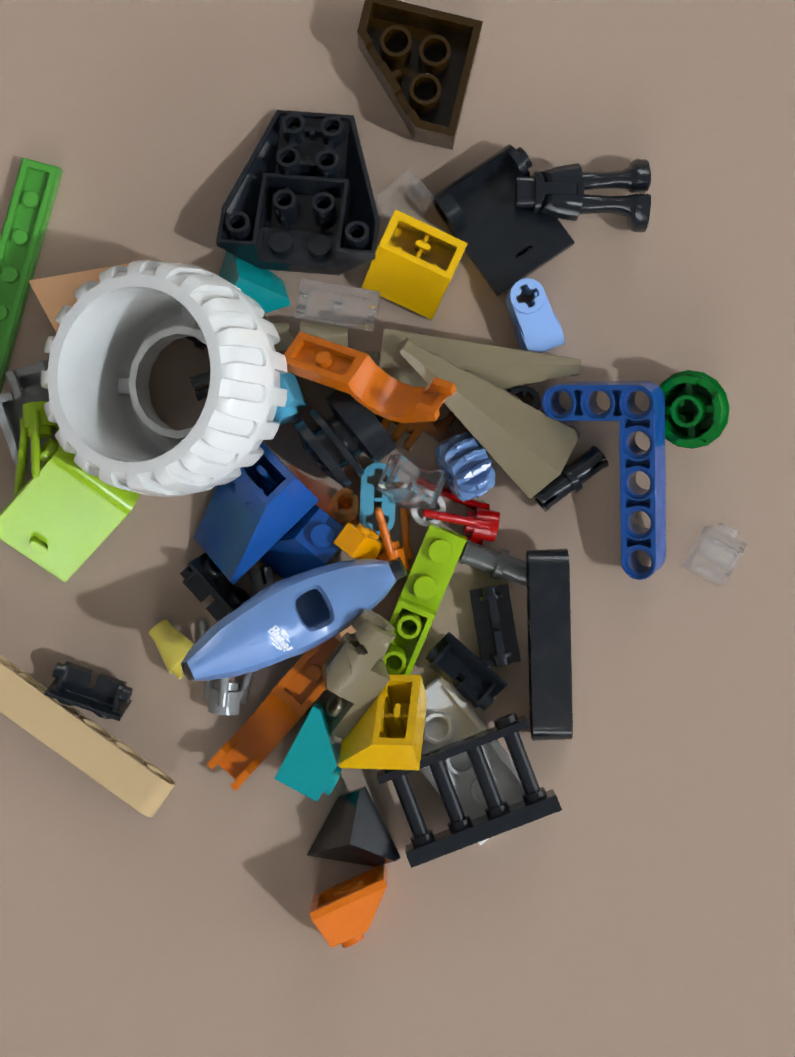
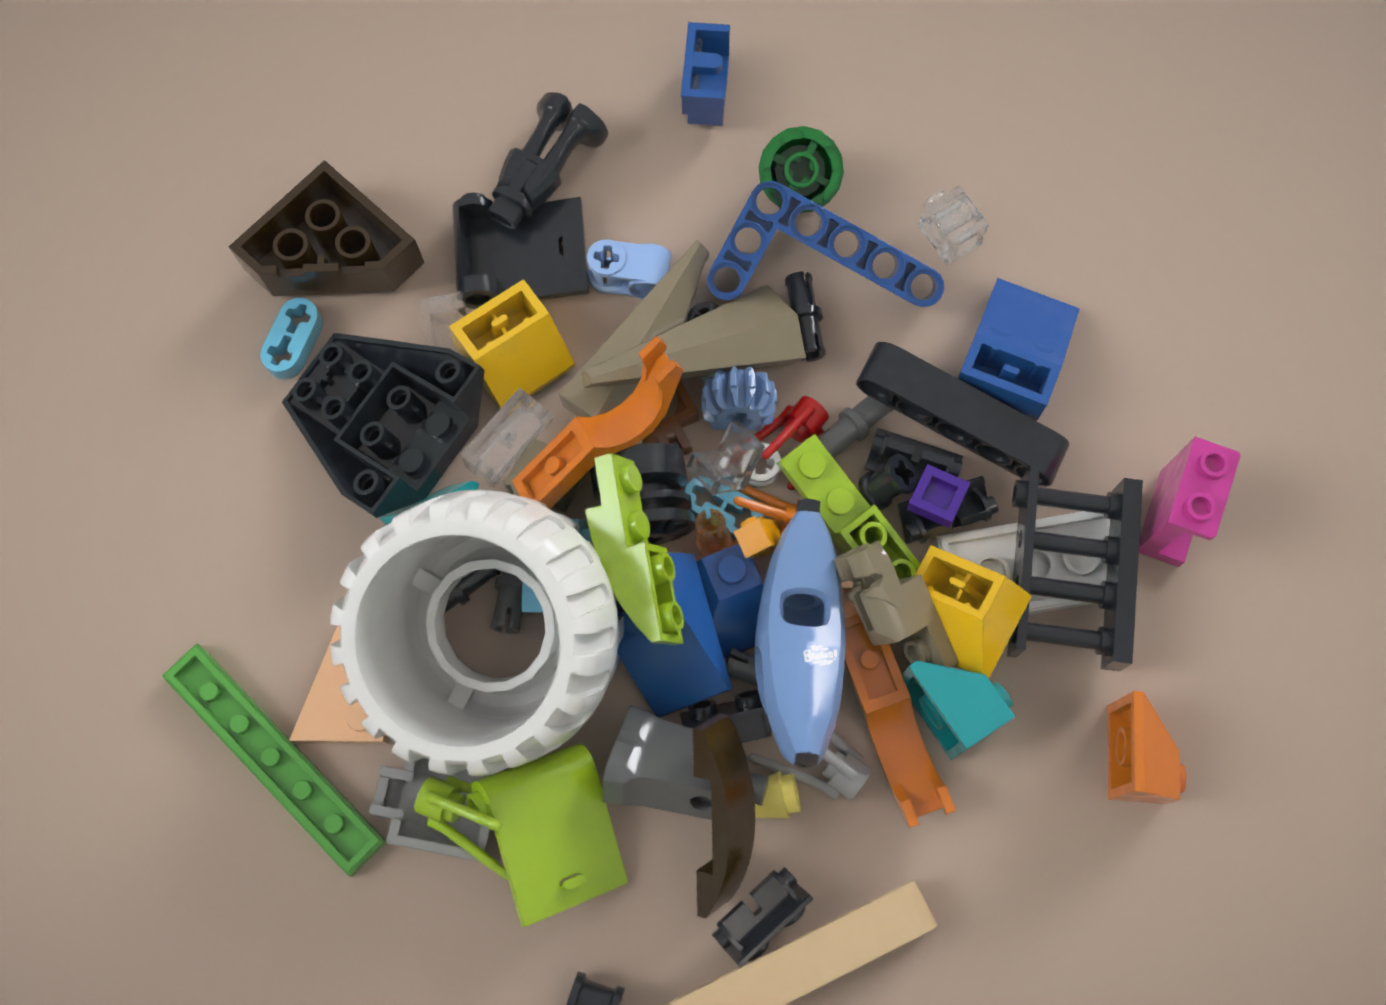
camera: 55 degrees left, 15 degrees down
(156, 574) = (656, 768): none -> dark grey piece
(166, 612) = (722, 760): none -> dark brown slope
(268, 470) = (636, 570): none -> lime slope
(331, 75) = (287, 337): none -> medium azure beam
(355, 832) = (1061, 713): black slope -> none
(457, 612) = (890, 481): none -> black bush
(466, 660) = (938, 496): none -> dark purple plate
(565, 852) = (1188, 500): none -> dark pink panel
(633, 660) = (1019, 347): none -> blue slope
(739, 282) = (705, 73): none -> blue window

